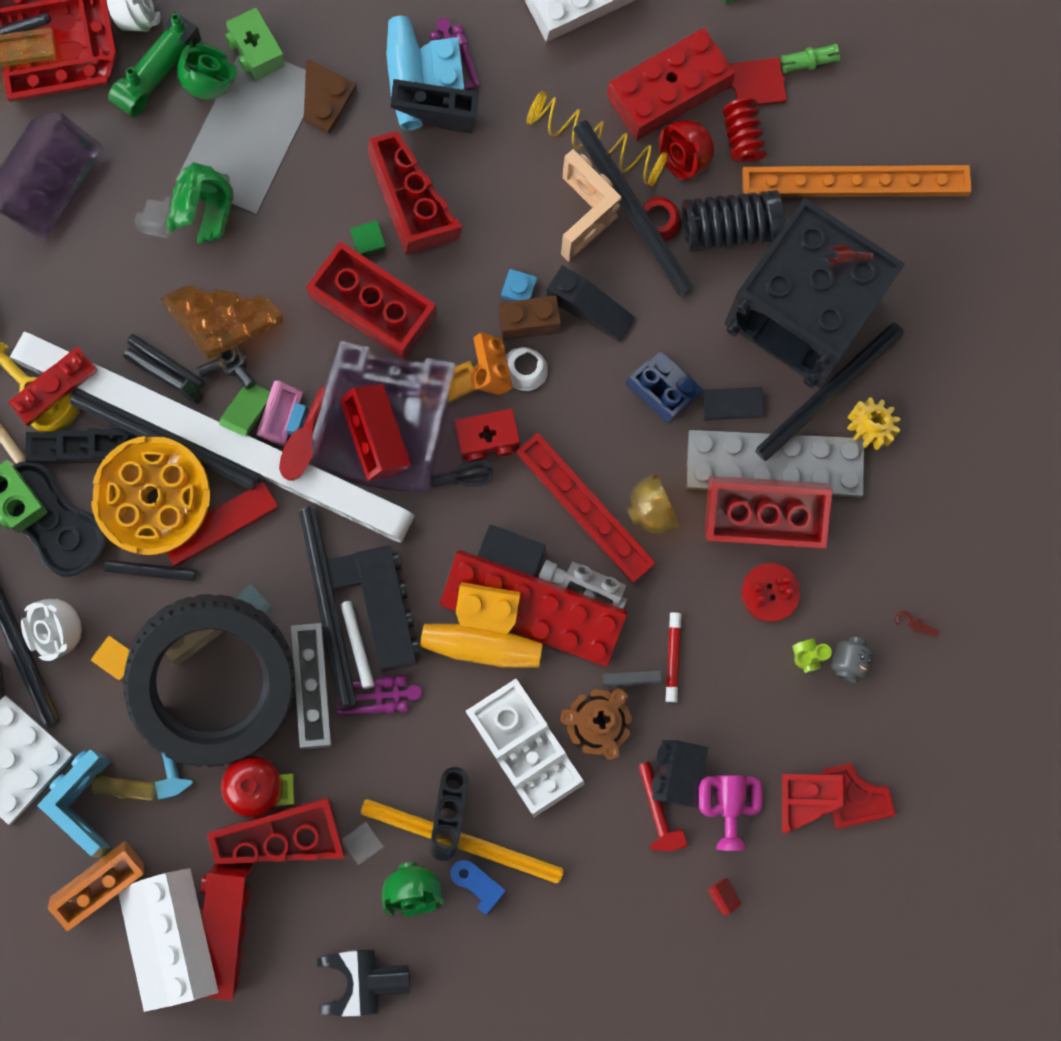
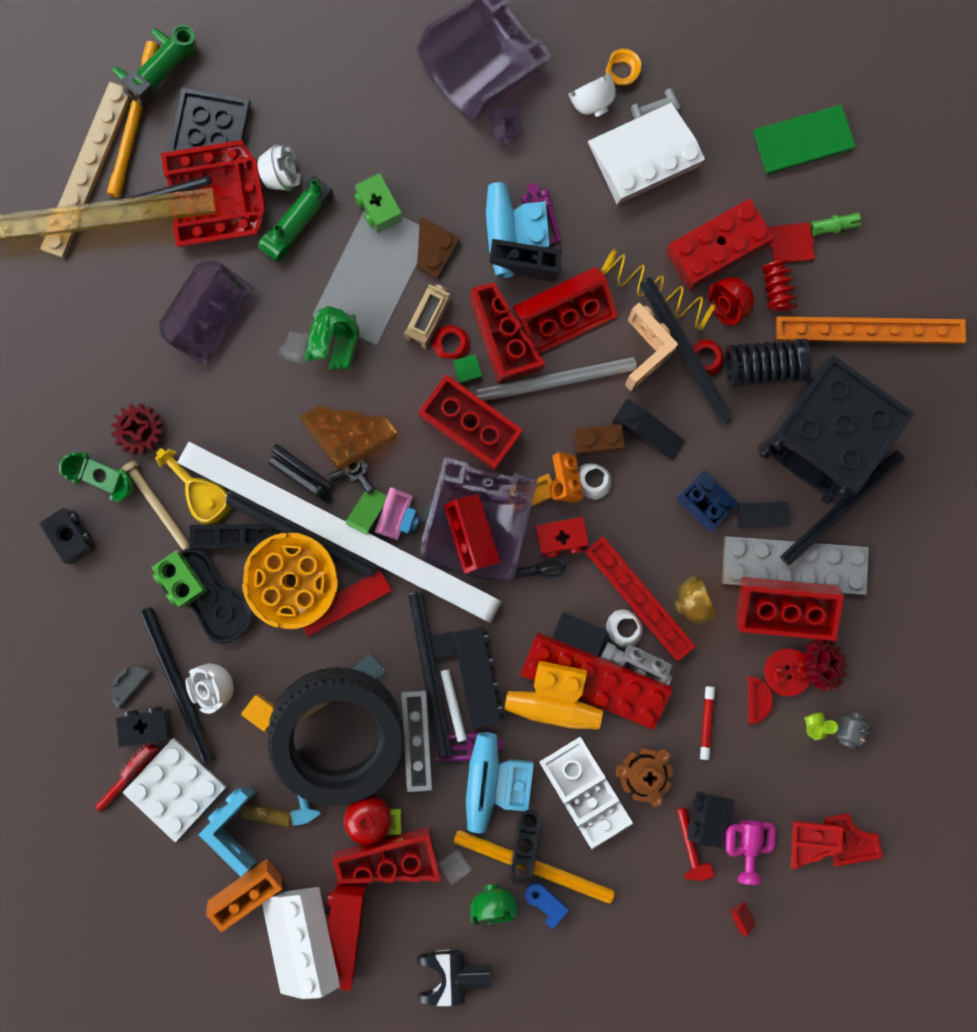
camera: 10 degrees right, 5 degrees up
(52, 386) = (212, 488): red plate -> none
(150, 570) = (288, 639): black bar -> none
(205, 71) = (337, 226): green cylinder -> none
(298, 448) = (410, 544): red piece -> none
(318, 174) = (428, 315): none -> tan window
(358, 218) = (464, 345): none -> red piece
(408, 737) = (491, 783): none -> medium azure plate
(476, 248) = (557, 379): none -> light grey axle
(487, 165) = (566, 310): none -> red slope
(518, 286) = (589, 413): dark azure plate -> none
(560, 558) = (615, 637): none -> white piece
(631, 679) = (673, 741): dark grey tile -> none
(736, 627) = (759, 700): none -> red tile
(814, 579) = (824, 664): none -> dark red gear
(845, 254) = (865, 405): clear red hand -> none
(873, 423) = (877, 535): yellow gear -> none
(917, 625) = (906, 702): clear red hand -> none

